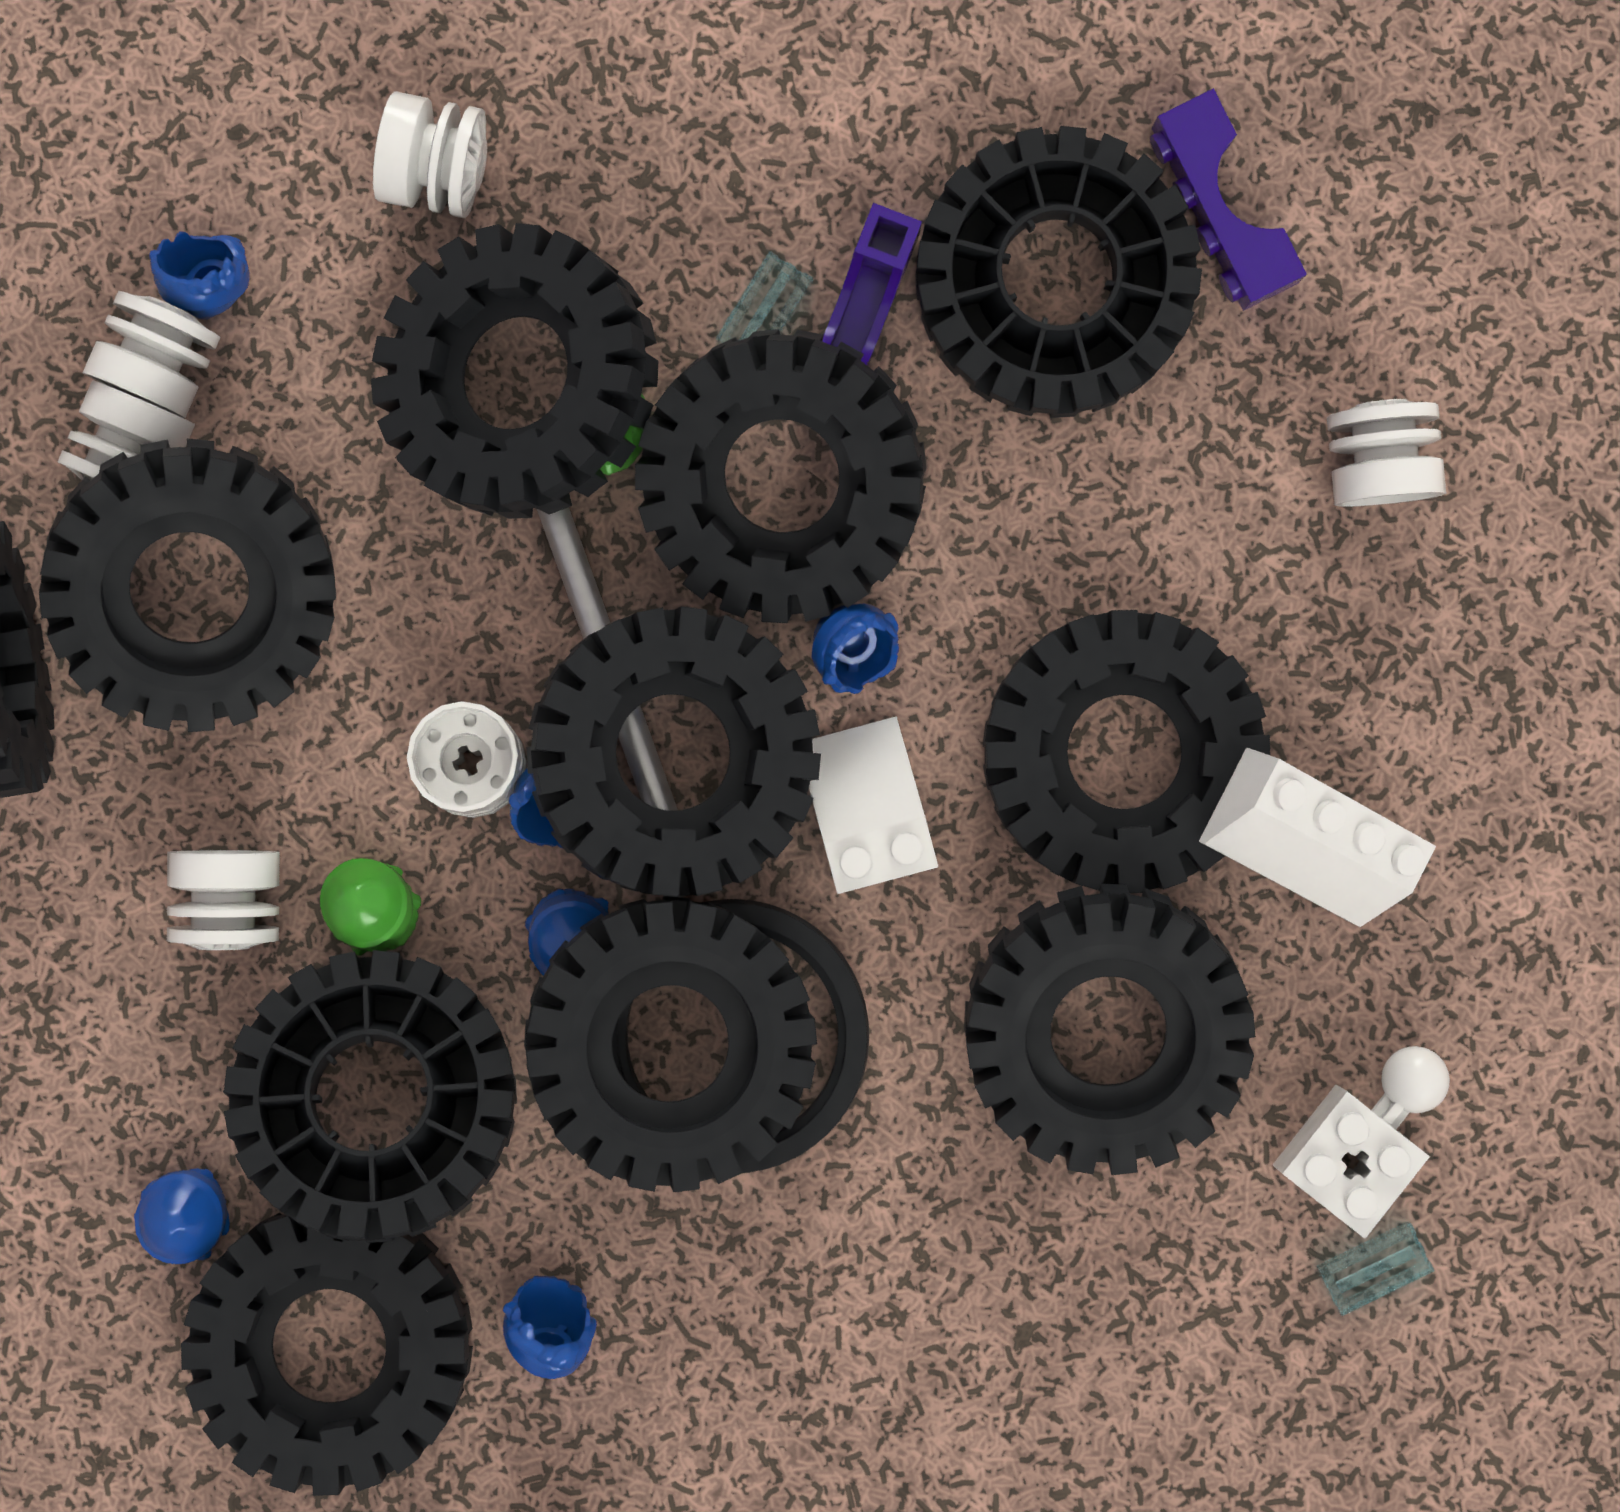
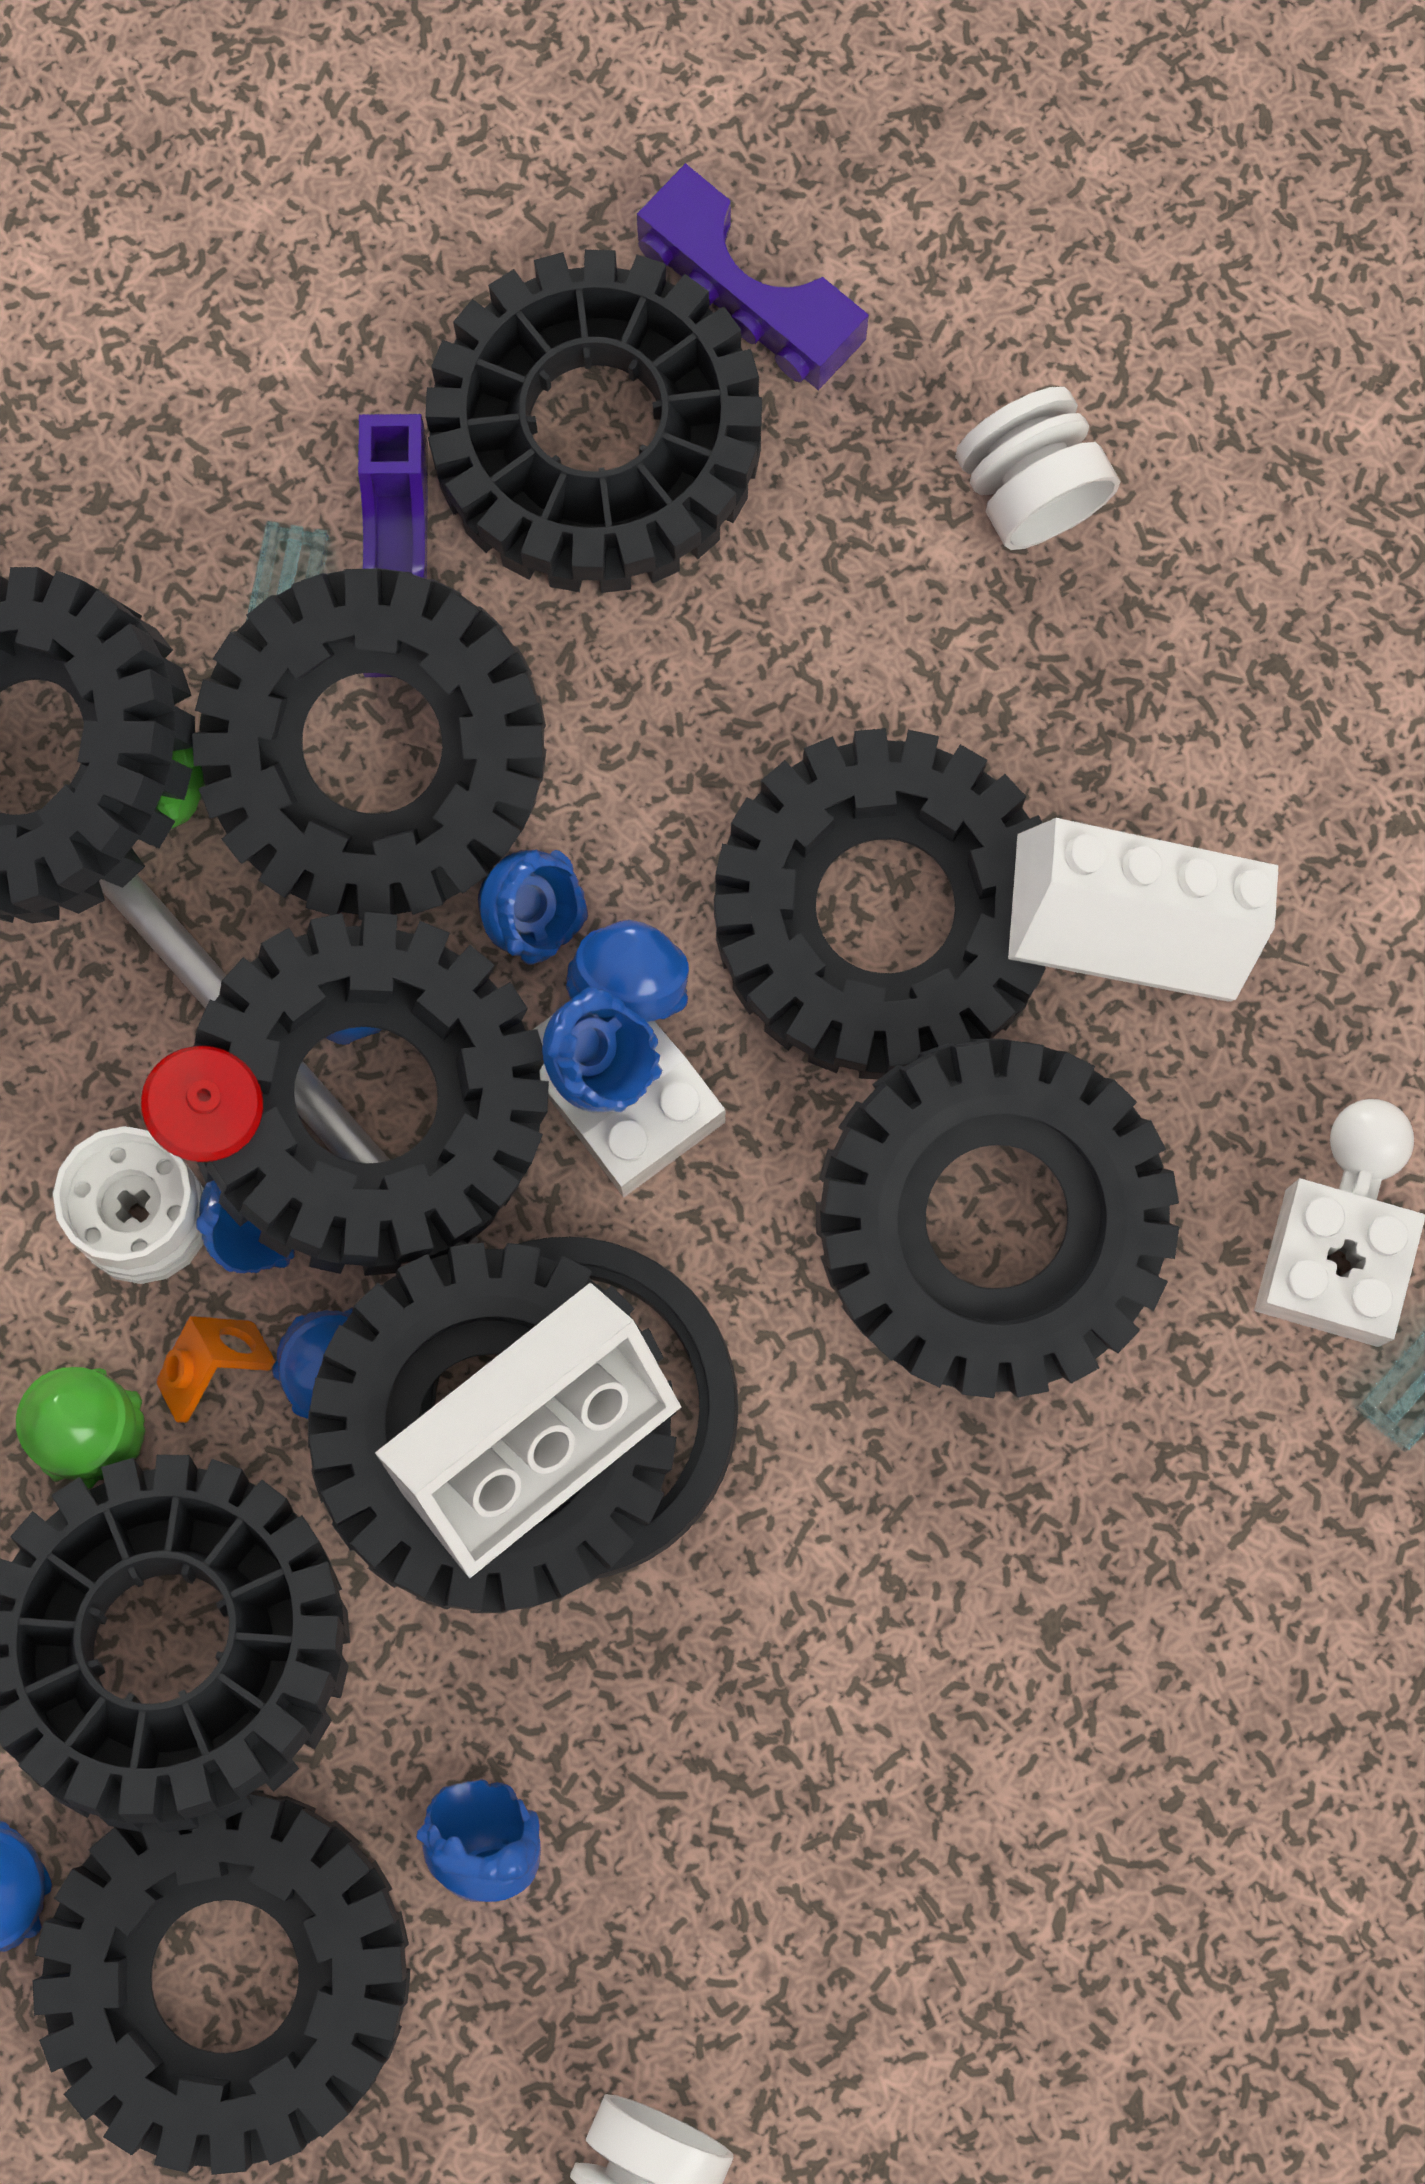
camera: 20 degrees left, 10 degrees down
(477, 891) = (199, 1353): none -> orange bracket
(546, 724) = (202, 1103): none -> red piece
(697, 1065) = (530, 1428): none -> white slope
(860, 793) = (600, 1052): none -> blue hair
(906, 731) = (632, 965): none -> blue hair

